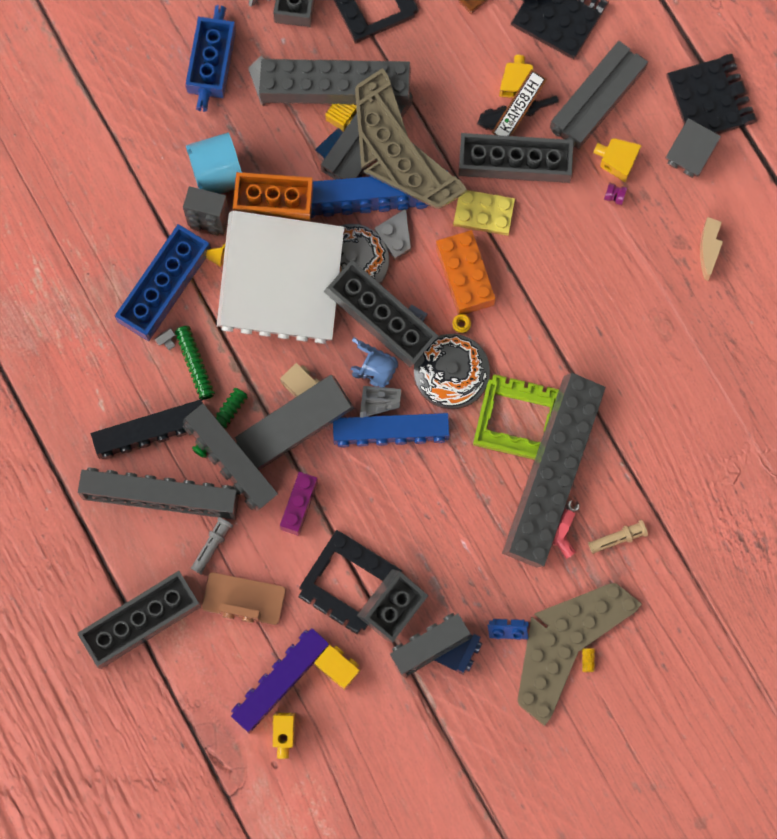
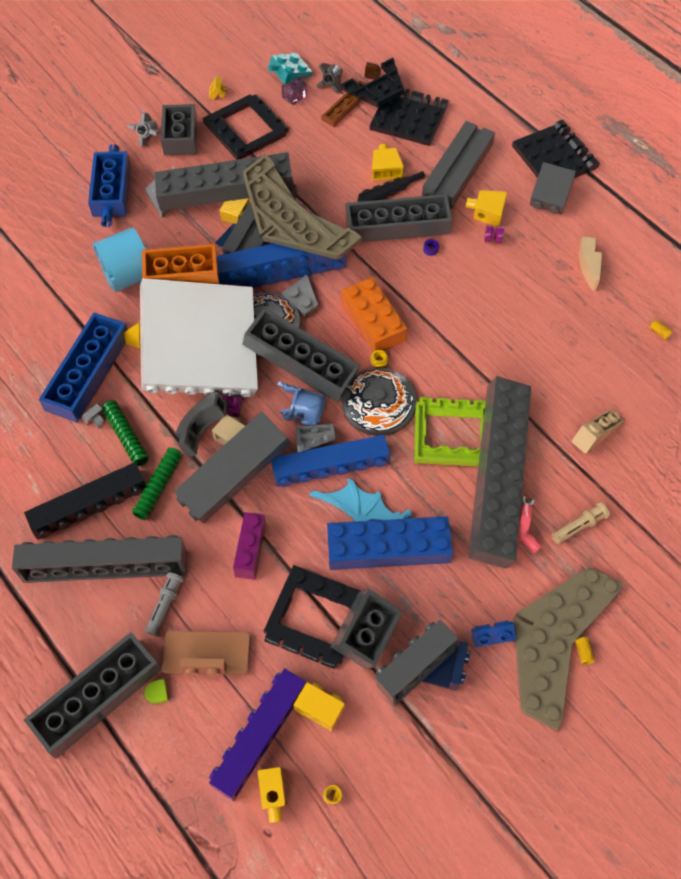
camera: 10 degrees left, 15 degrees down
(194, 626) = (156, 692): none -> lime tile
(206, 211) = (118, 295): dark grey brick -> none
(229, 457) = (170, 508): dark grey brick -> none
(266, 363) = (197, 420): none -> dark grey arch
(303, 350) = (234, 405): none -> magenta tile
(338, 746) = (336, 797): none -> yellow hinge
(413, 480) = (359, 504): none -> medium azure animal
(430, 524) = (389, 543): none -> blue brick
(484, 212) = (381, 265): light yellow plate -> none
(519, 104) = (393, 174): tile -> none
(539, 198) = (431, 252): none -> dark purple bush
(662, 443) = (597, 430): none -> tan slope
(760, 340) = (660, 329): none -> yellow piece

